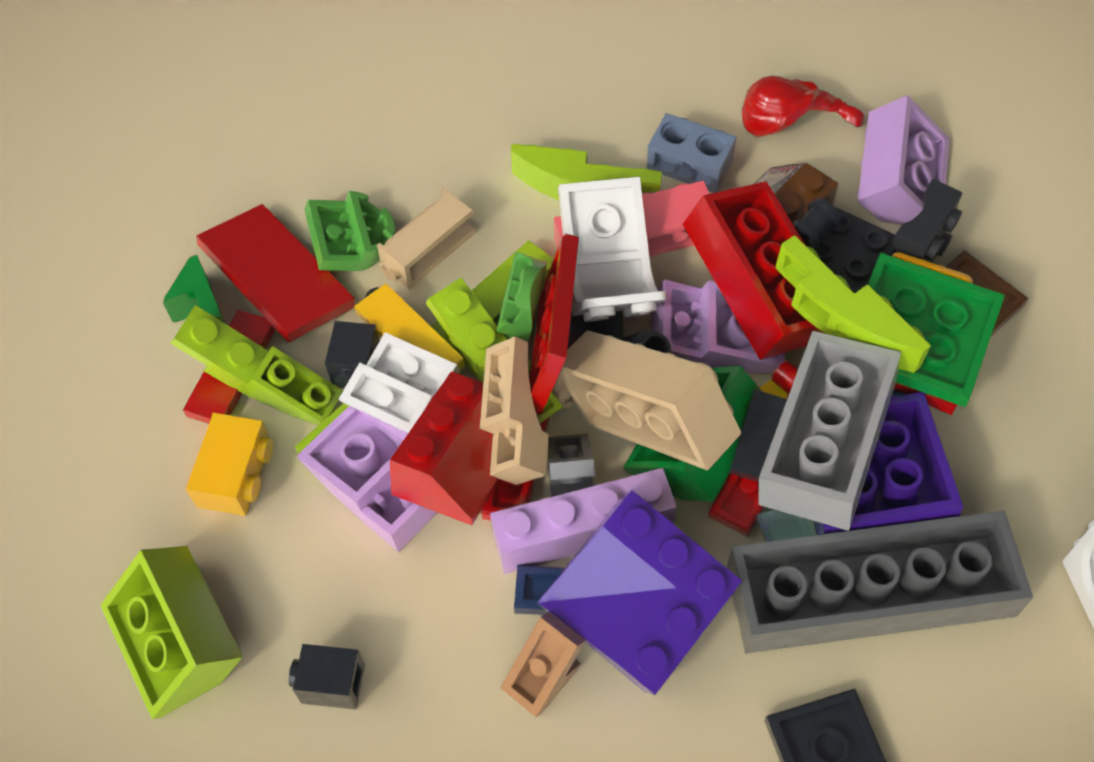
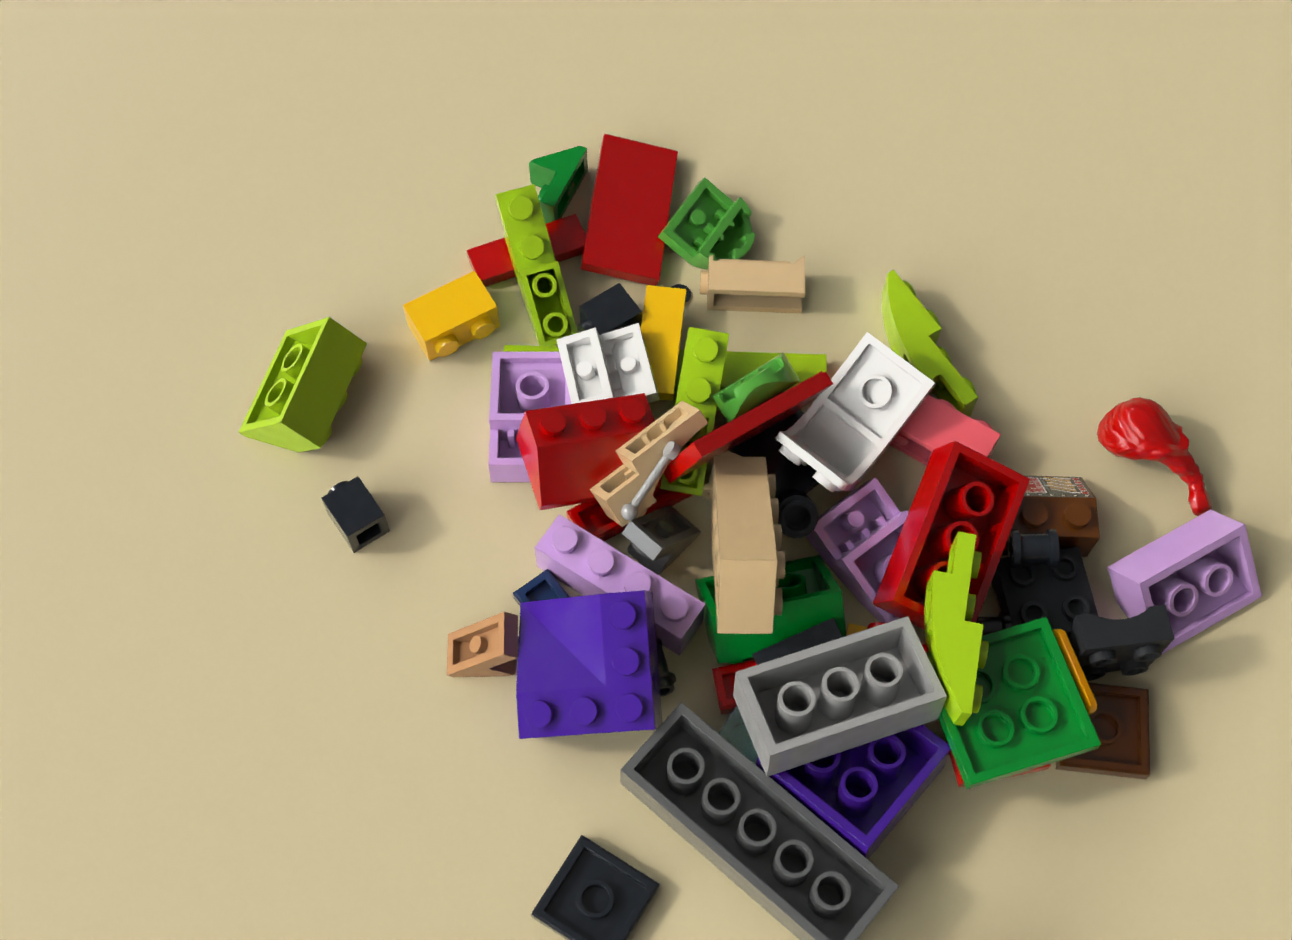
camera: 45 degrees right, 5 degrees up
(528, 384) = (670, 452): none -> light grey hinge
(691, 152) = (1019, 406): sand blue brick -> none

